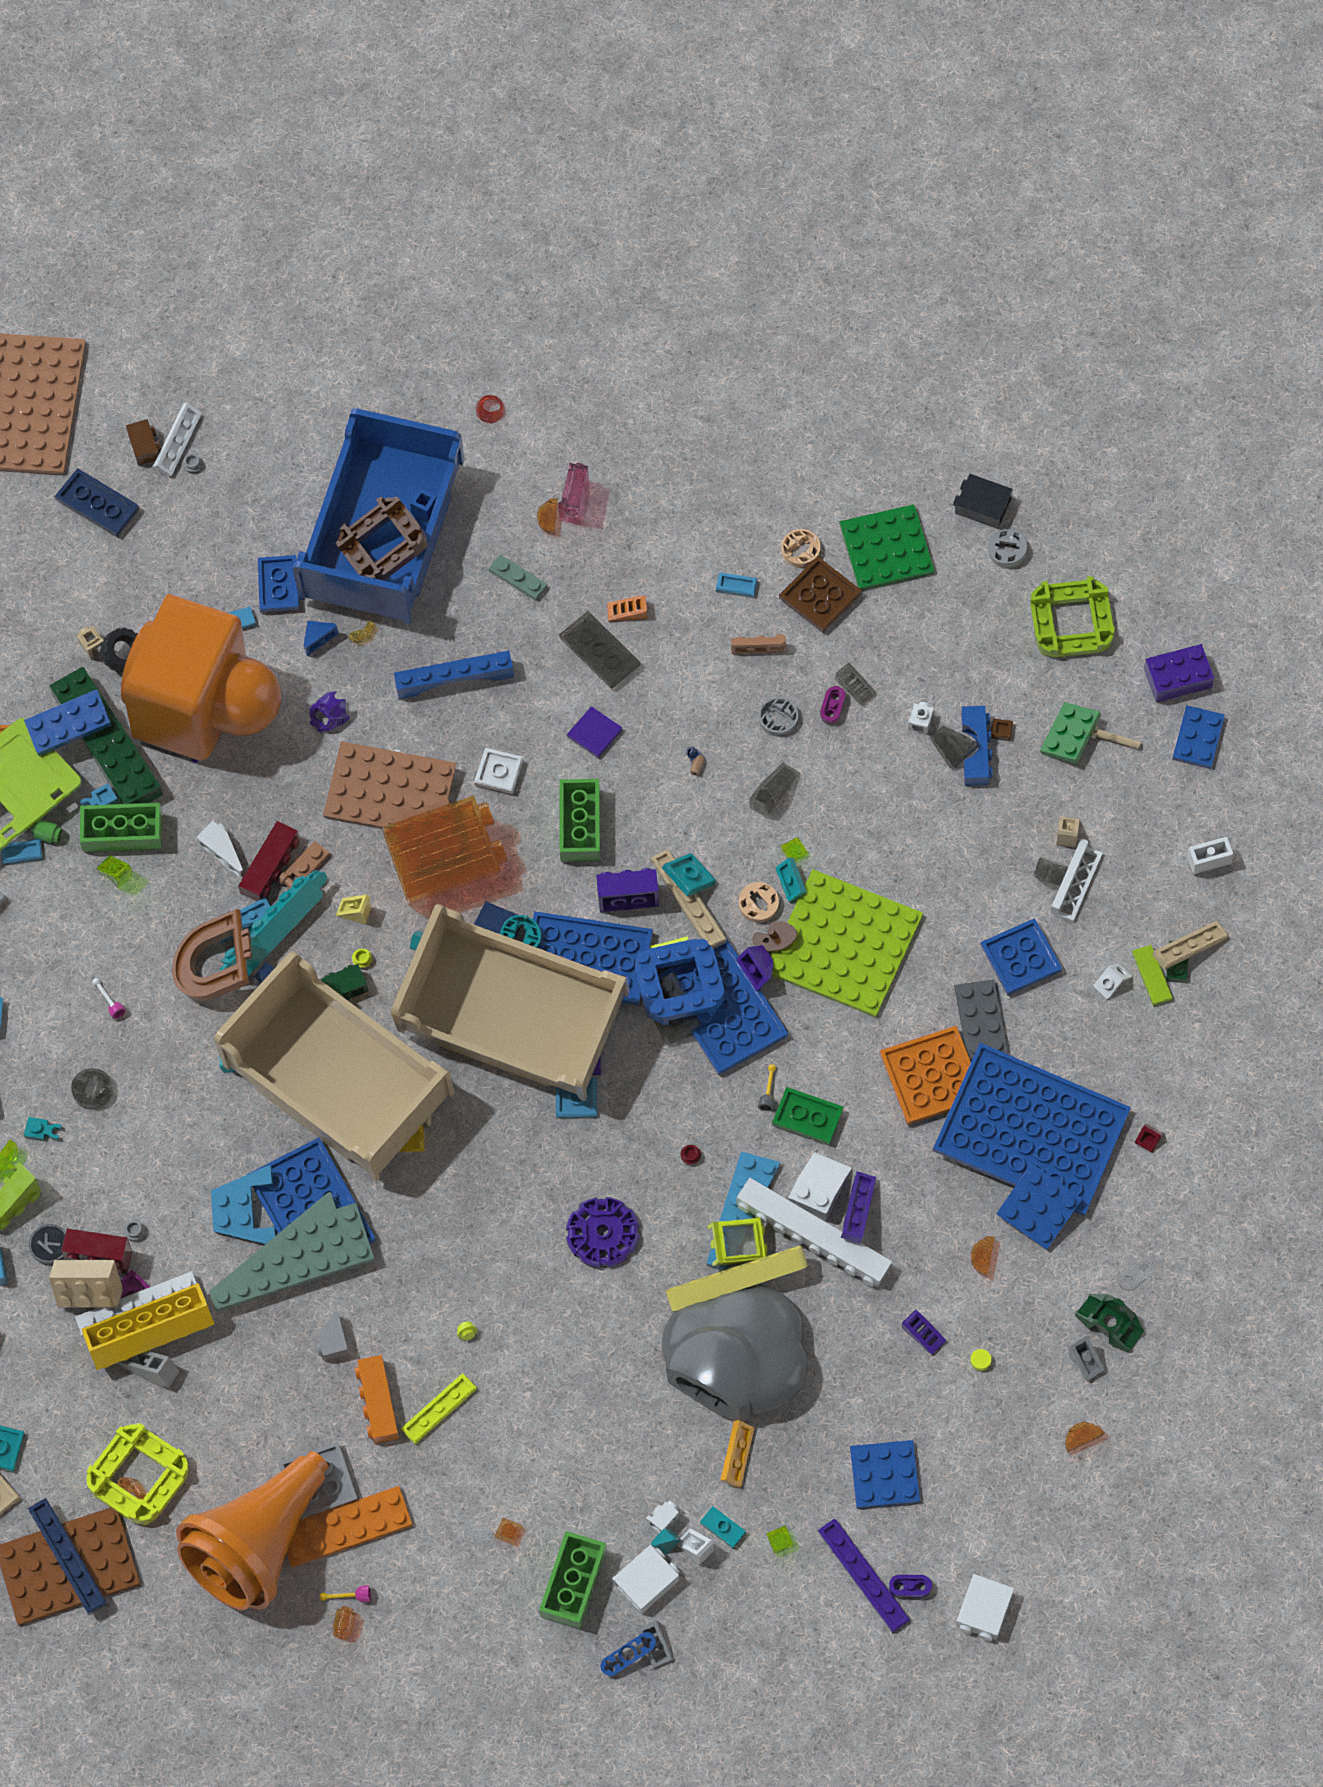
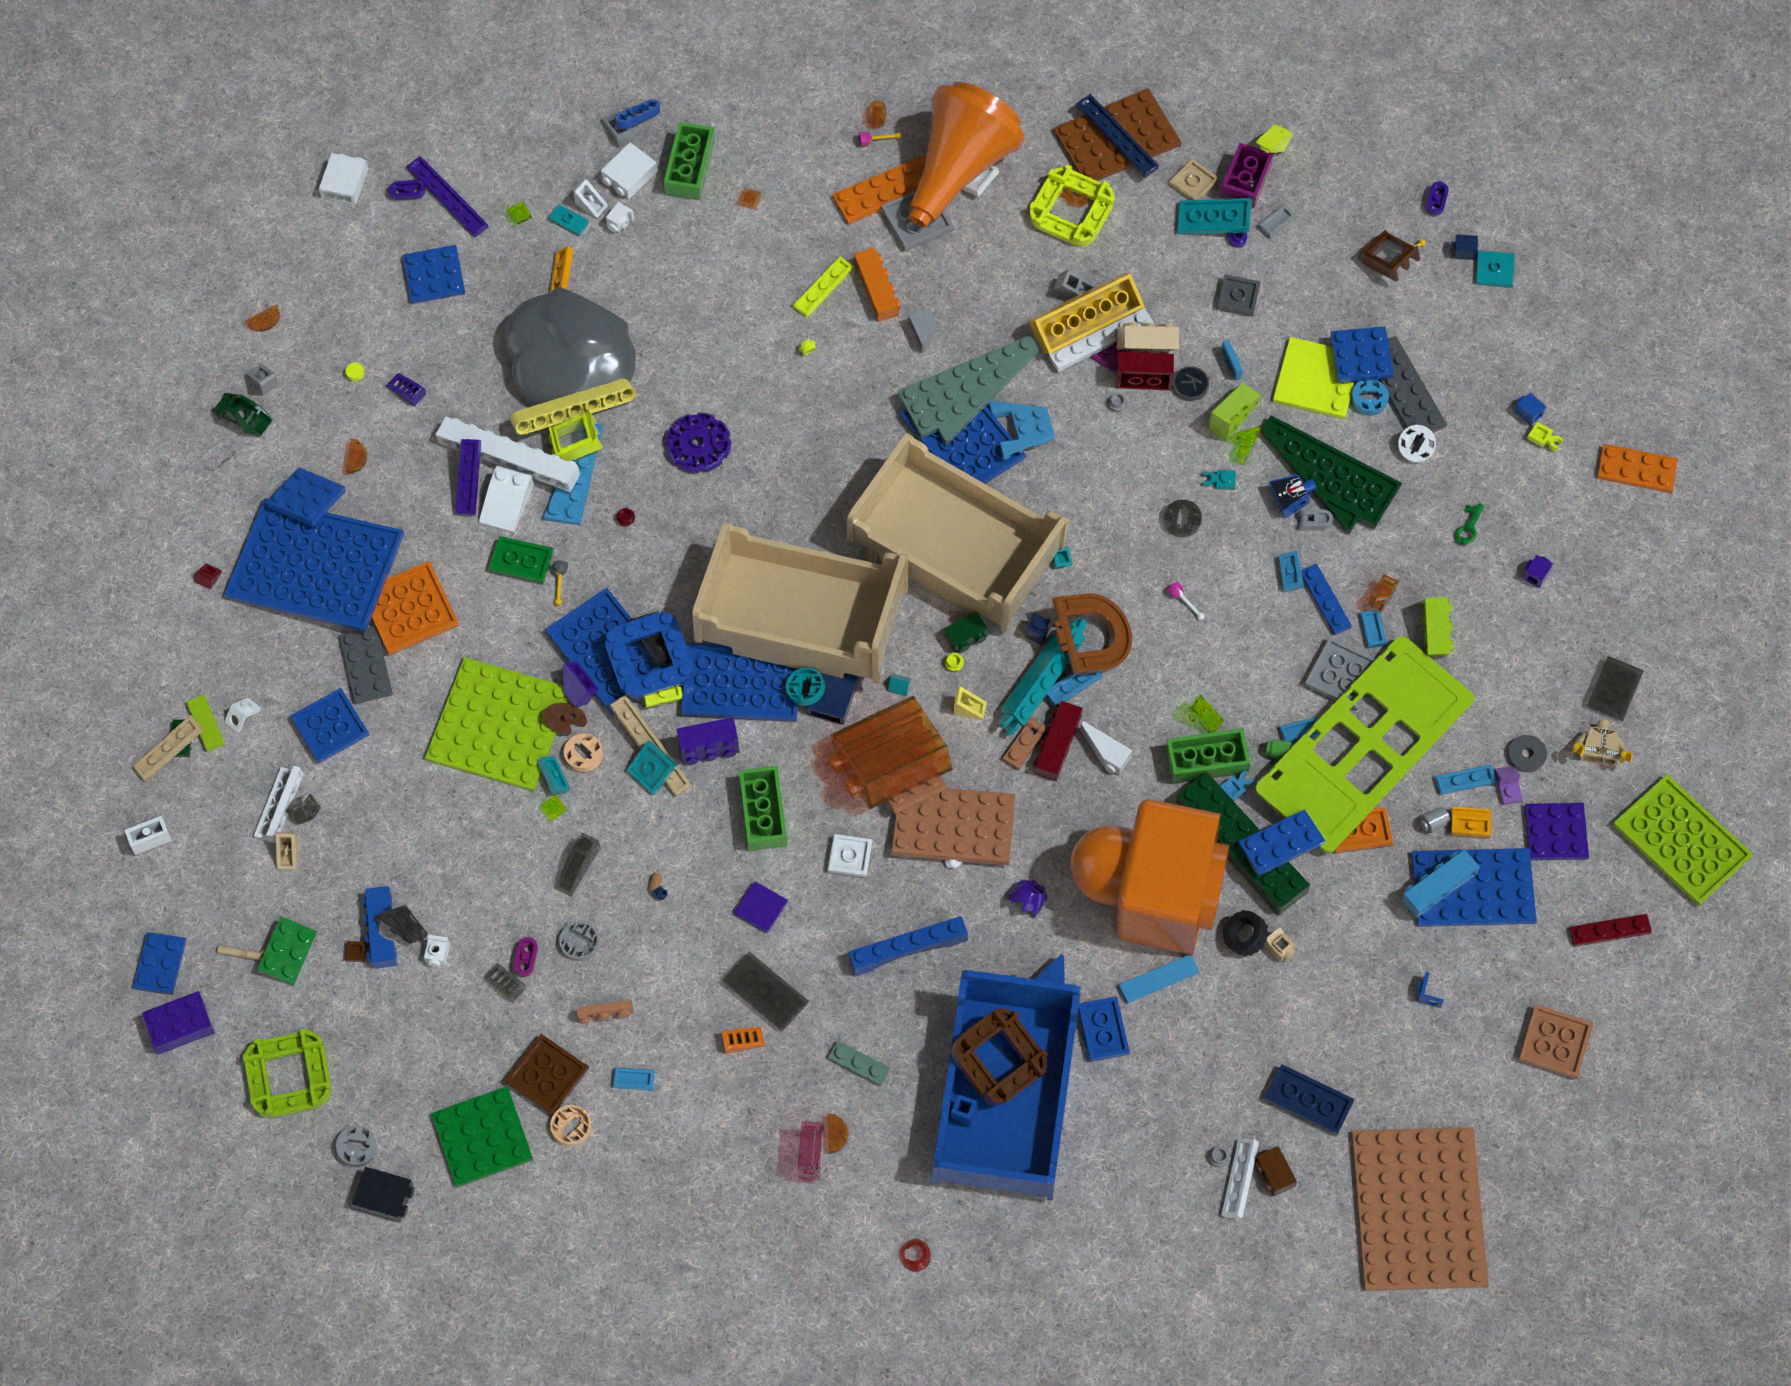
camera: 170 degrees right, 0 degrees up
(665, 1540) = (613, 198): teal slope -> none

